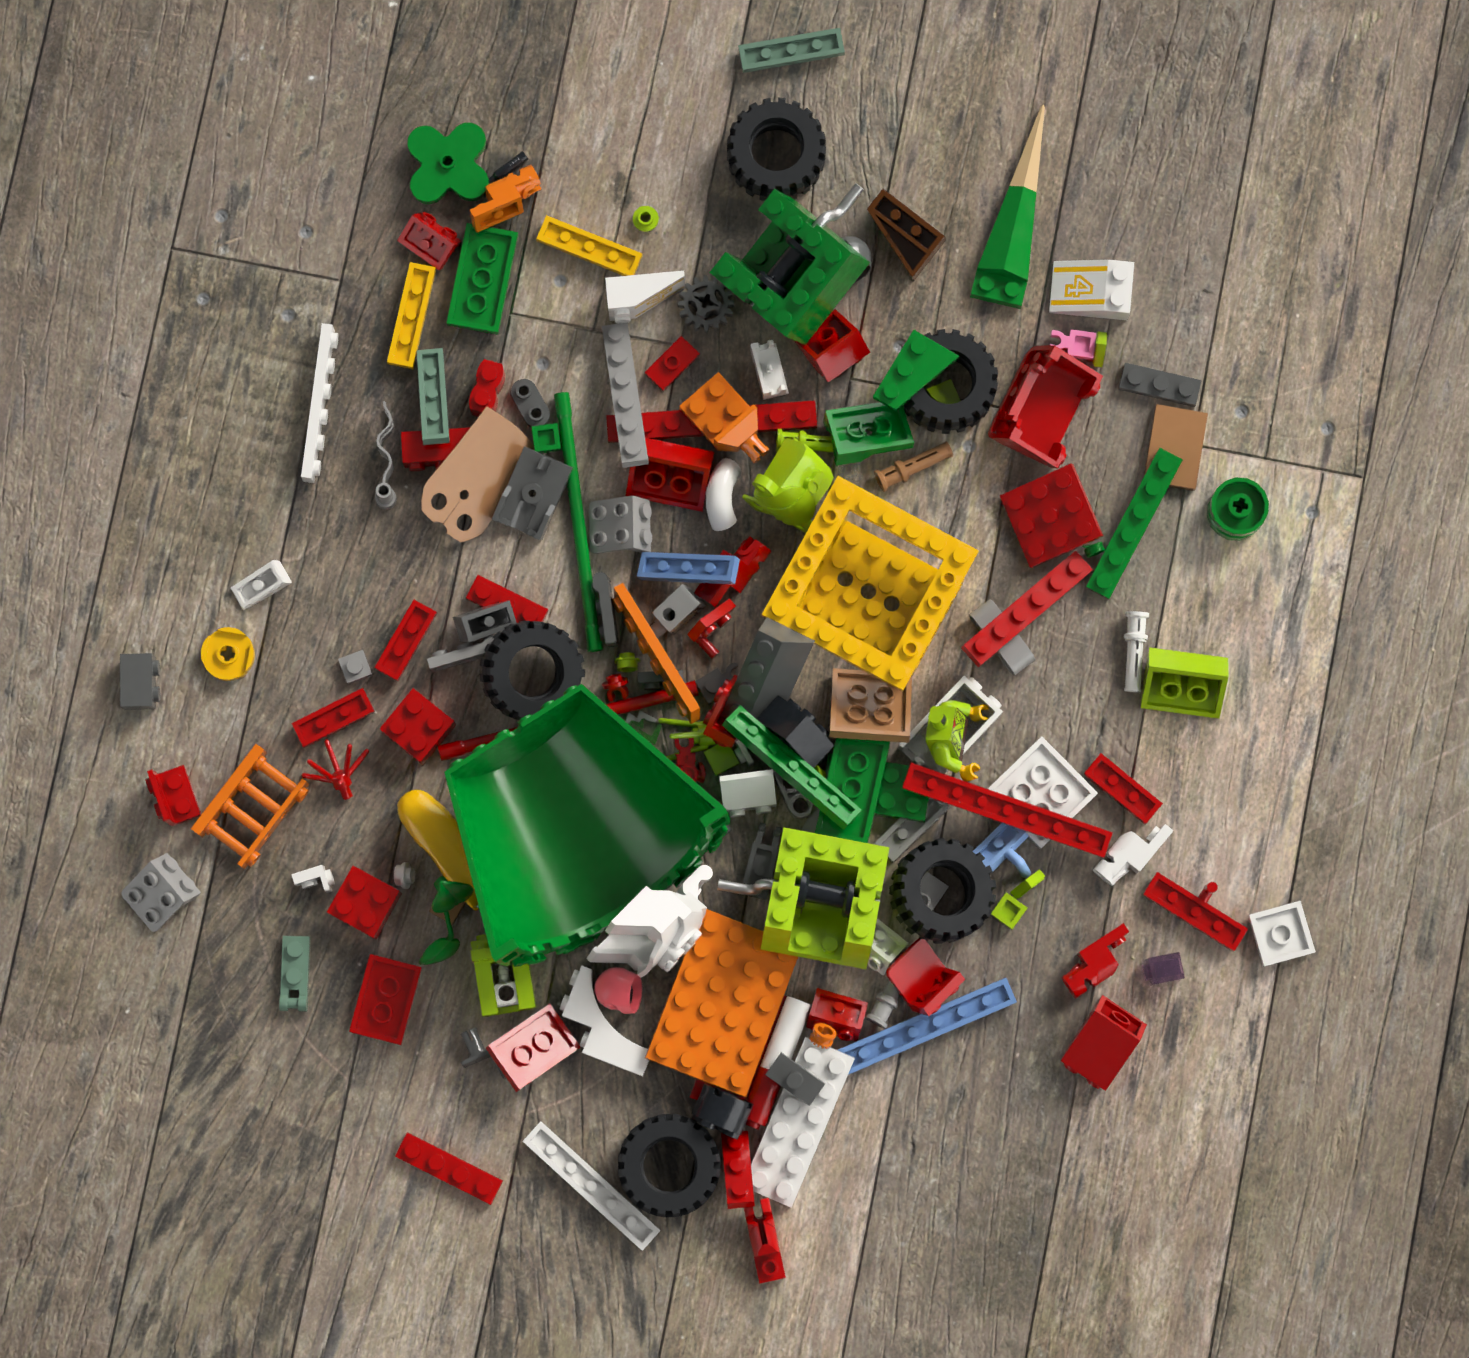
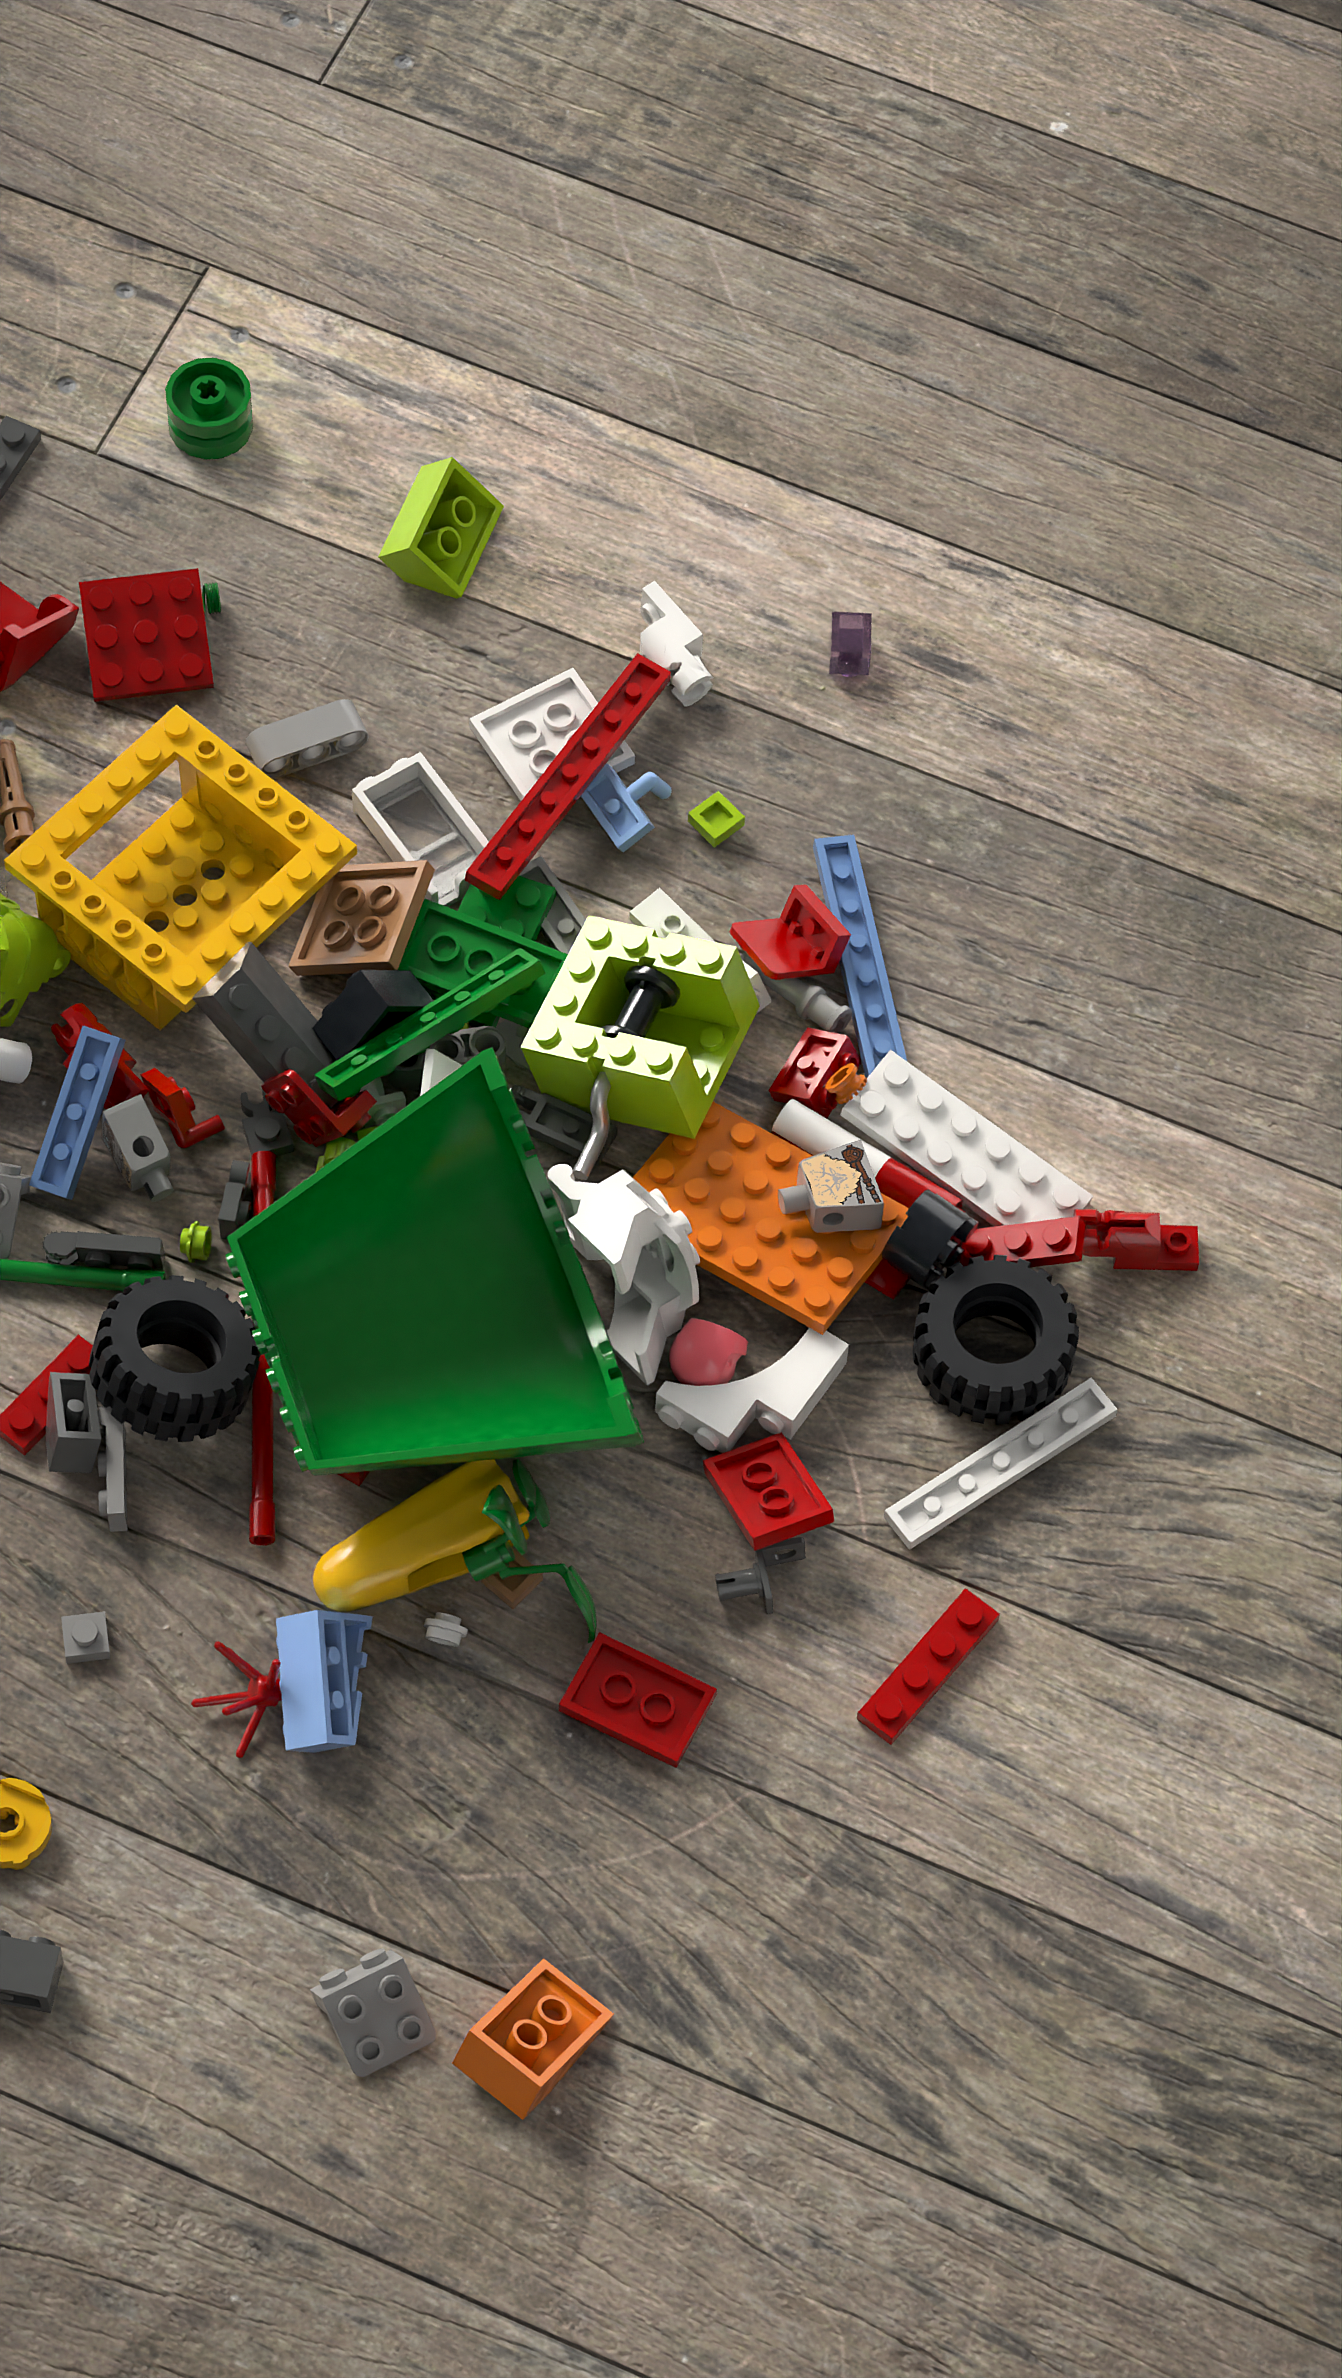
camera: 80 degrees left, 20 degrees down
(162, 987) = (531, 2038): none -> orange slope
(174, 795) = (218, 1955): red bracket -> none
(240, 782) = (253, 1878): orange fence -> none
(295, 972) = (559, 1831): sand green plate -> none
(310, 876) = (411, 1758): white bracket -> none
(333, 717) = (159, 1684): red plate -> none
(351, 810) = (320, 1677): none -> light blue wedge
(364, 902) = (474, 1694): red brick -> none
(405, 640) = (65, 1550): red plate -> none
(417, 726) = (211, 1557): red brick -> none
(489, 991) = (648, 1498): lime brick -> none
(613, 683) = (219, 1267): red plate -> none
(659, 661) = (200, 1178): orange plate -> none
(737, 1045) = (836, 1191): none -> light grey torso
(795, 1079) = (903, 1130): dark grey tile -> none
(947, 735) = (441, 820): lime torso -> none
(970, 871) = (669, 843): black tyre -> none
(1026, 608) = (276, 691): red plate -> none
(1028, 884) = (683, 787): lime tile -> none
(1096, 962) = (818, 725): red plate -> none
(1103, 1043) = (942, 739): red slope -> none
(1123, 788) = (574, 639): red plate -> none
(1134, 523) = (189, 540): green plate -> none
(1135, 638) = (358, 576): white pin -> none
(1182, 435) = (93, 471): medium nougat tile -> none
(1196, 910) = (773, 590): red plate -> none
(1281, 933) = (834, 495): white plate -> none

